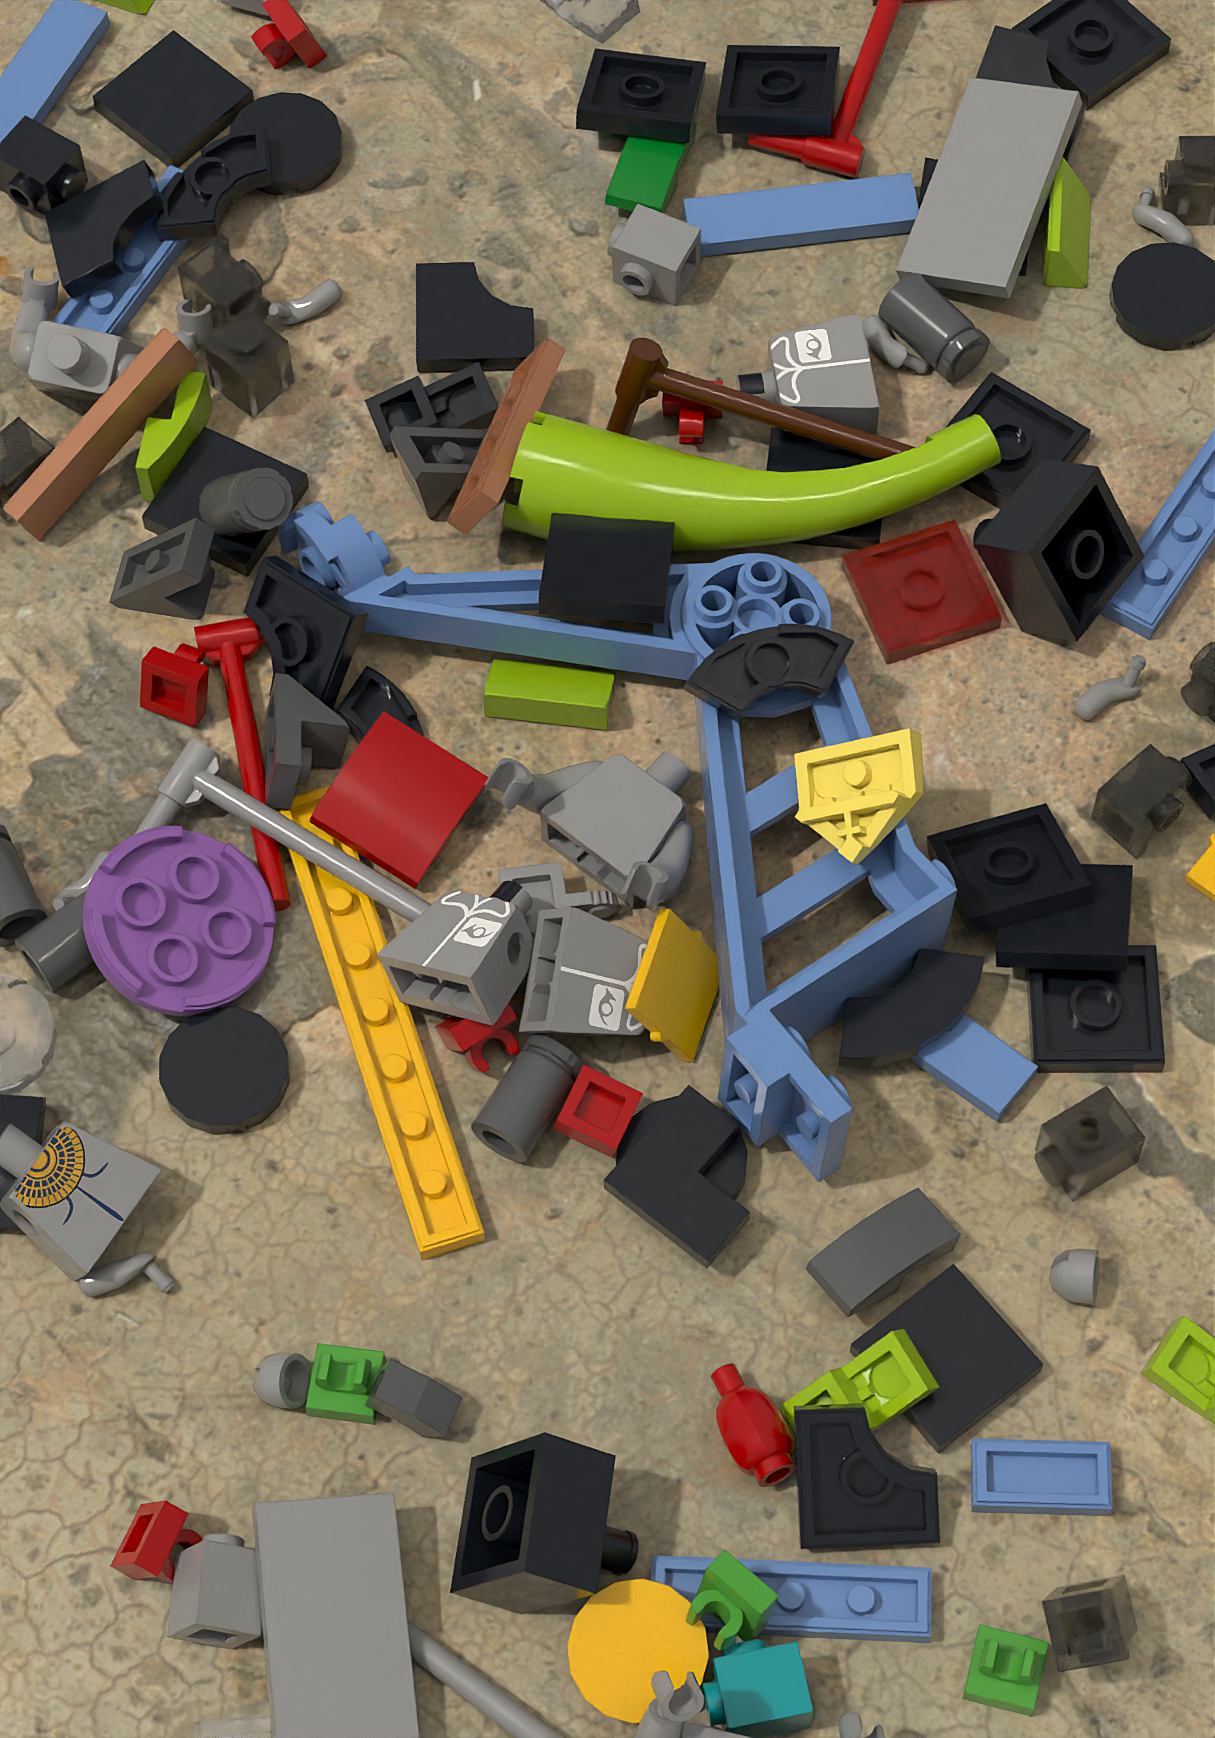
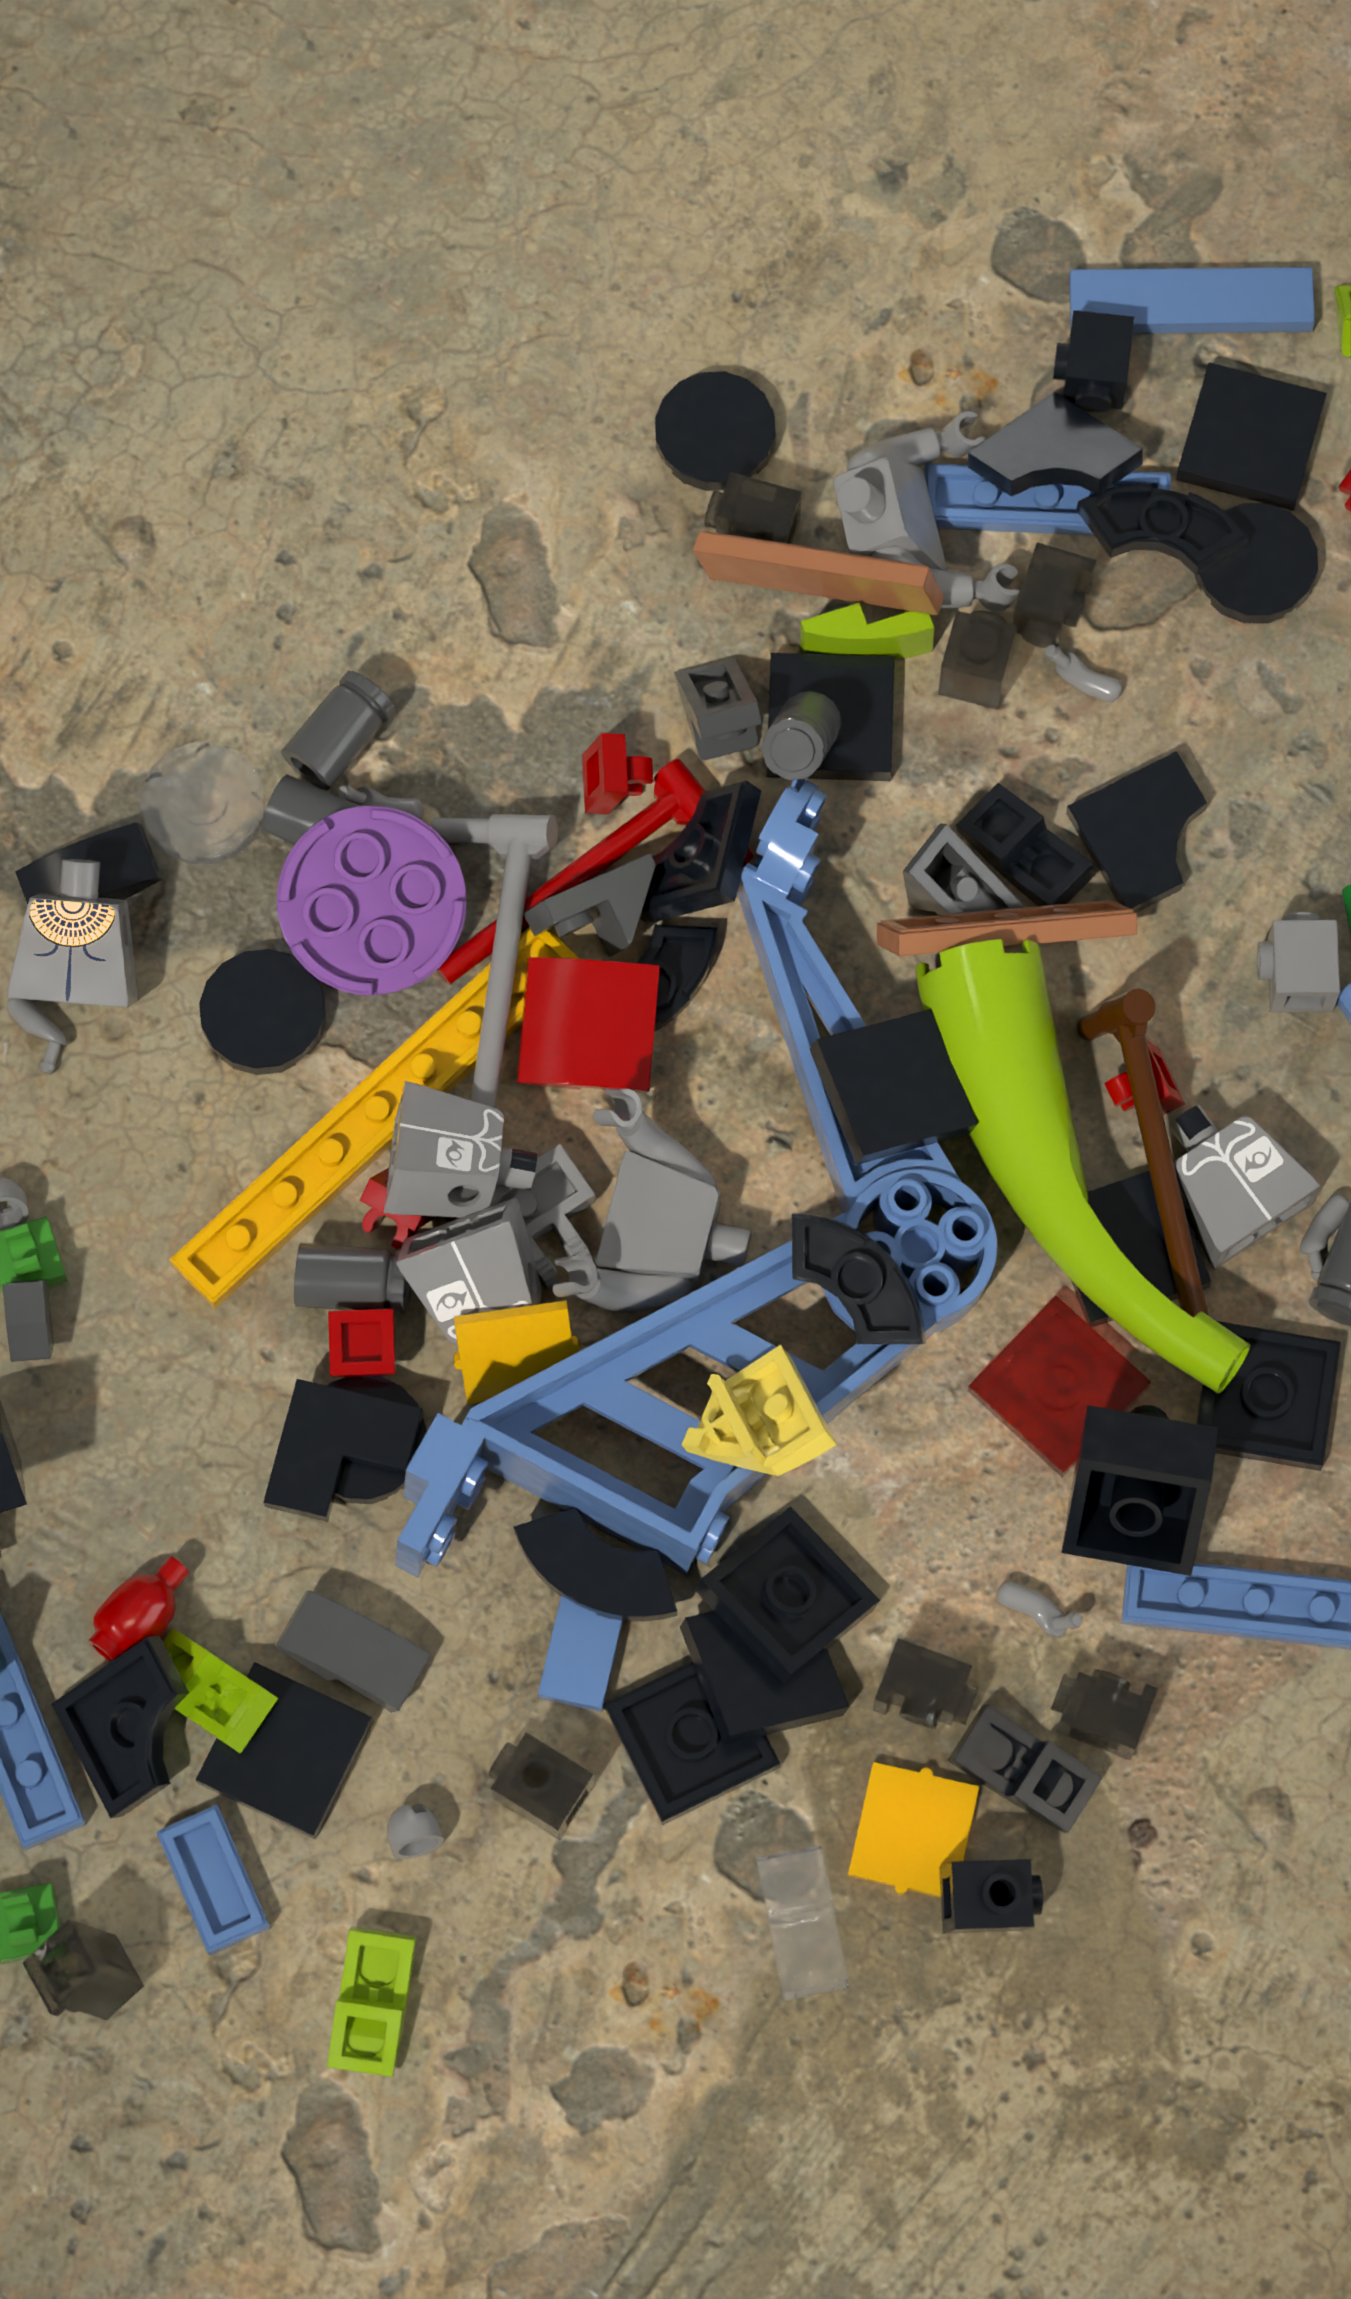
camera: 65 degrees right, 10 degrees up
(549, 694) = (773, 1100): lime slope -> none

